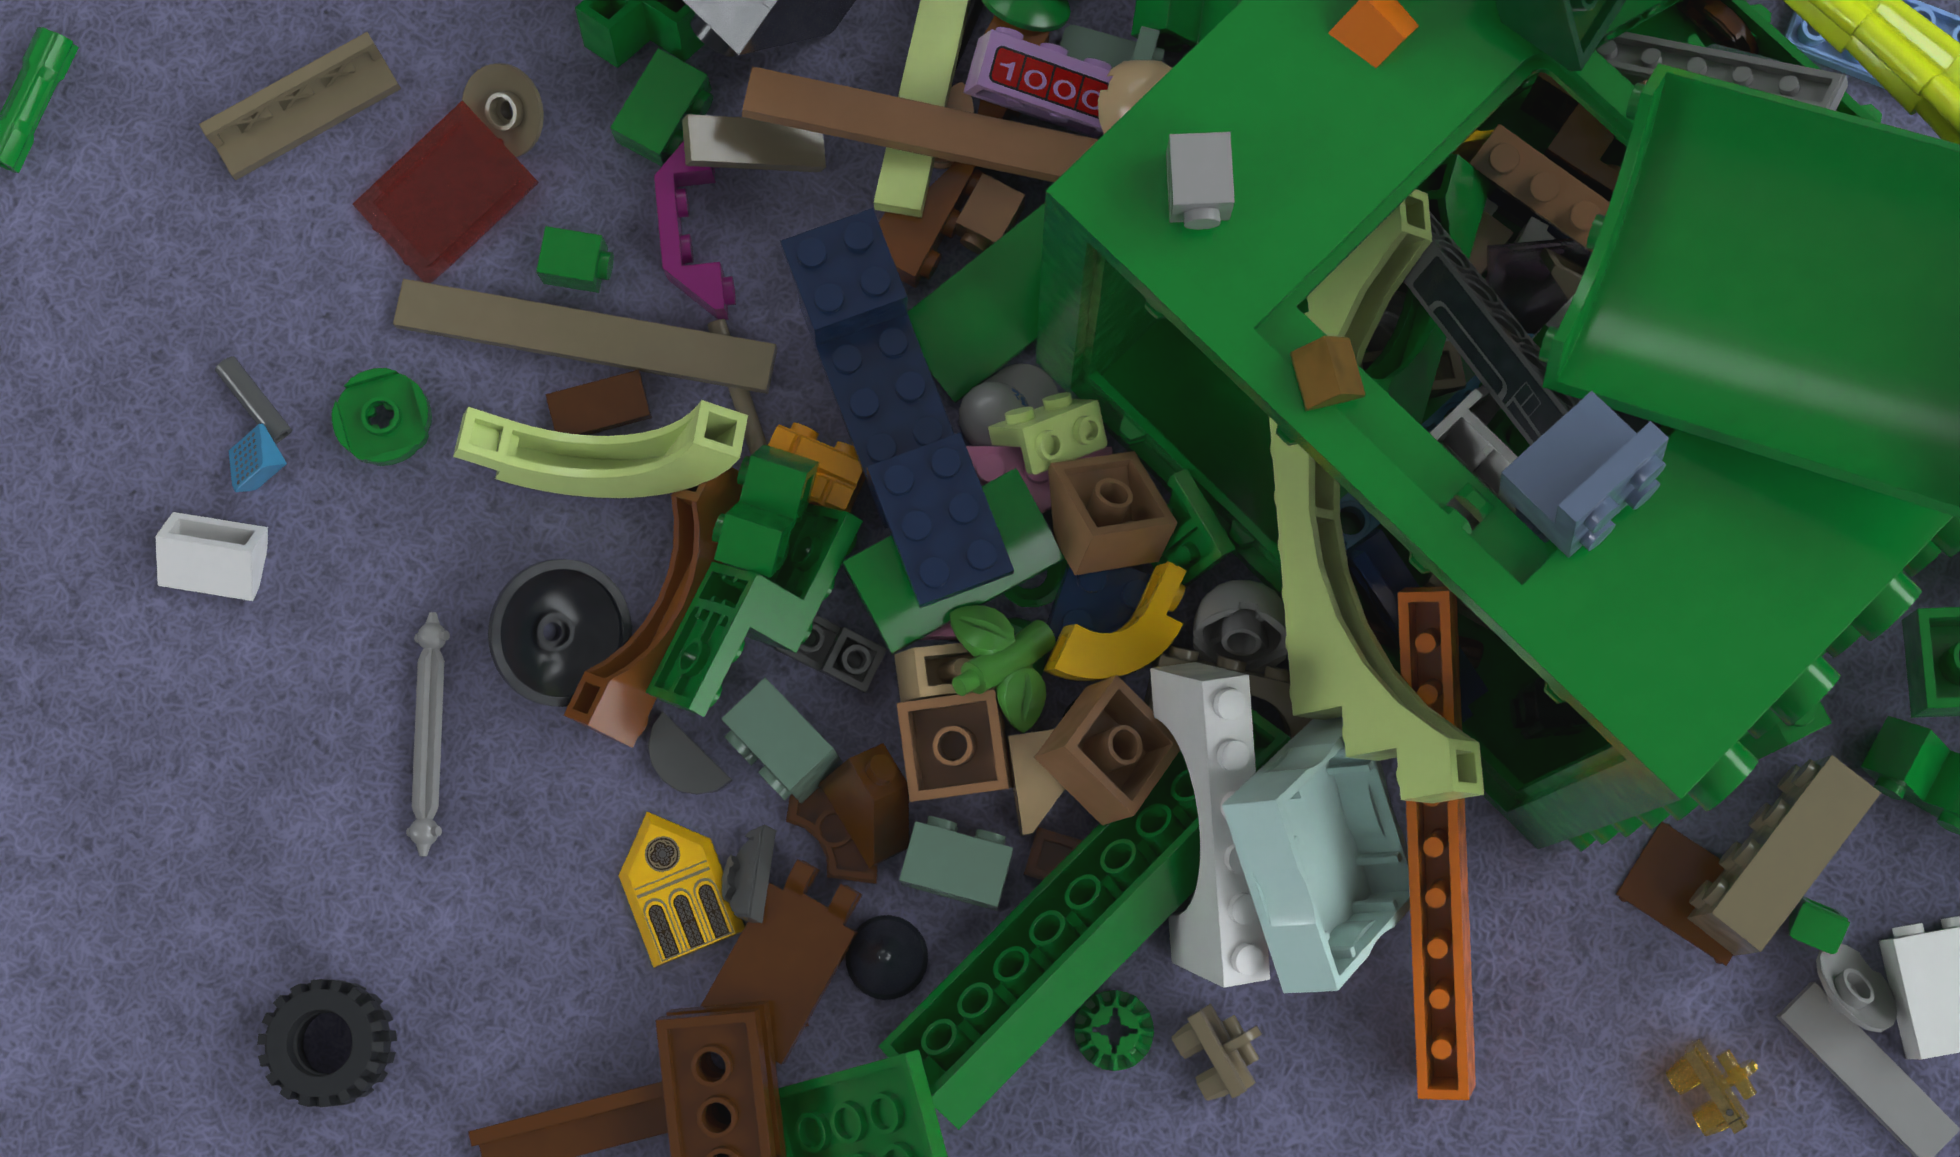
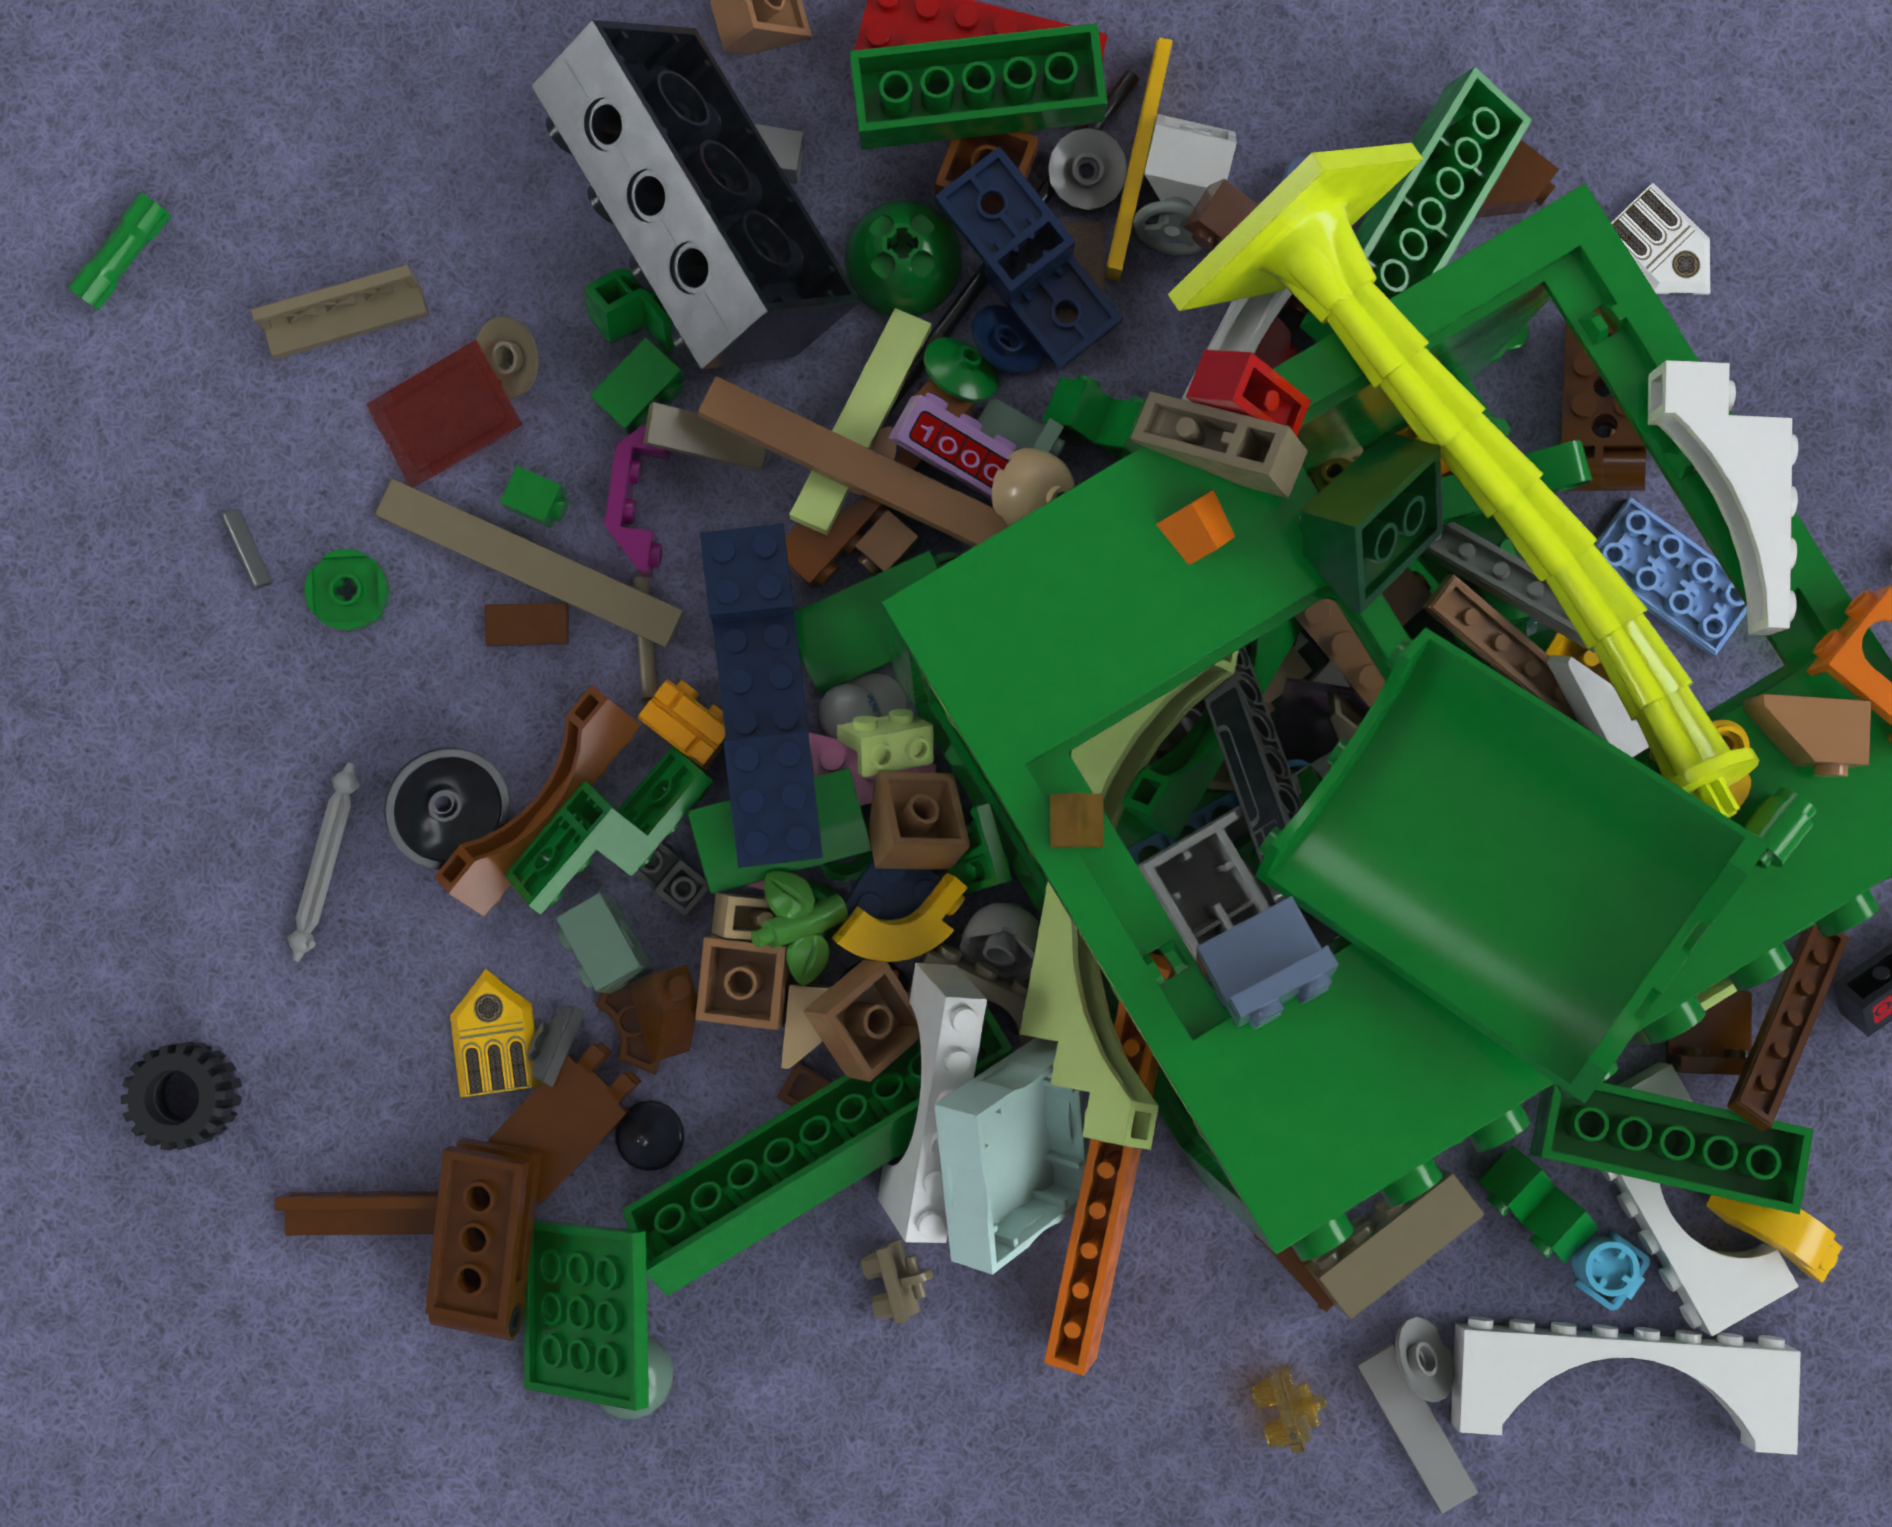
camera: 10 degrees right, 5 degrees up
(211, 556) = (181, 671): white brick -> none
(254, 460) = (234, 601): dark azure slope -> none
(606, 466) = (549, 685): yellowish green arch -> none
(682, 761) = (523, 935): dark grey tile -> none
(771, 502) = (644, 742): green brick -> none
(956, 863) = (721, 1079): sand green brick -> none
(1096, 1046) = (835, 1232): green gear -> none
(1200, 179) = (1010, 629): light grey brick -> none
(1818, 925) = (1408, 1302): green slope -> none

